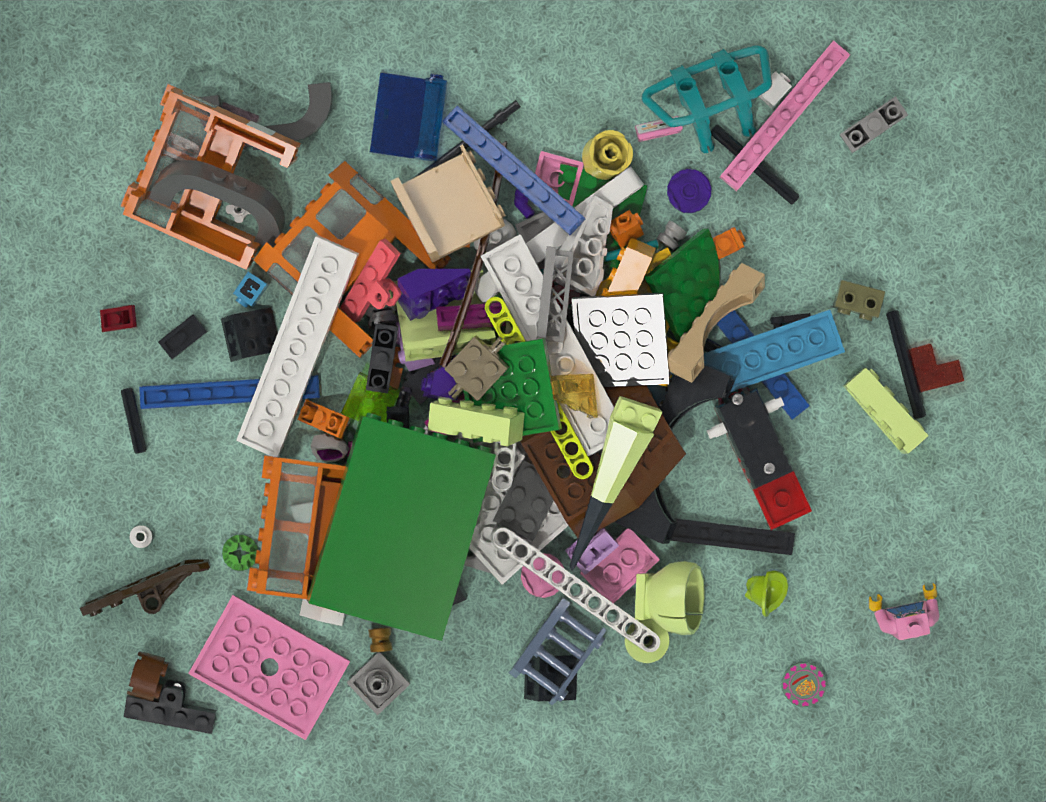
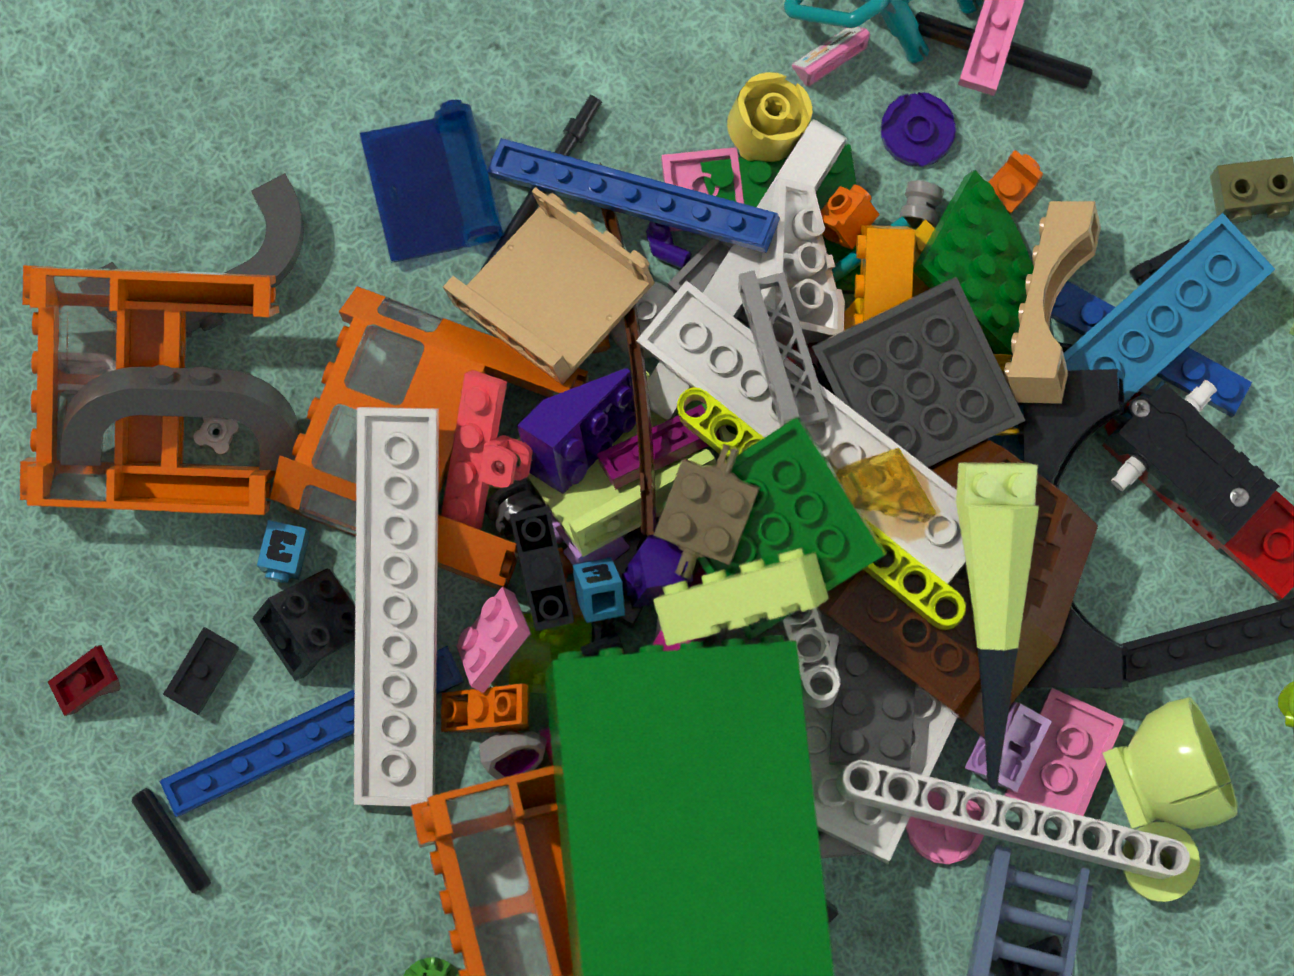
camera: 20 degrees left, 10 degrees down
(342, 384) = (492, 639): none -> bright pink plate
(407, 381) = (598, 590): none -> dark azure brick

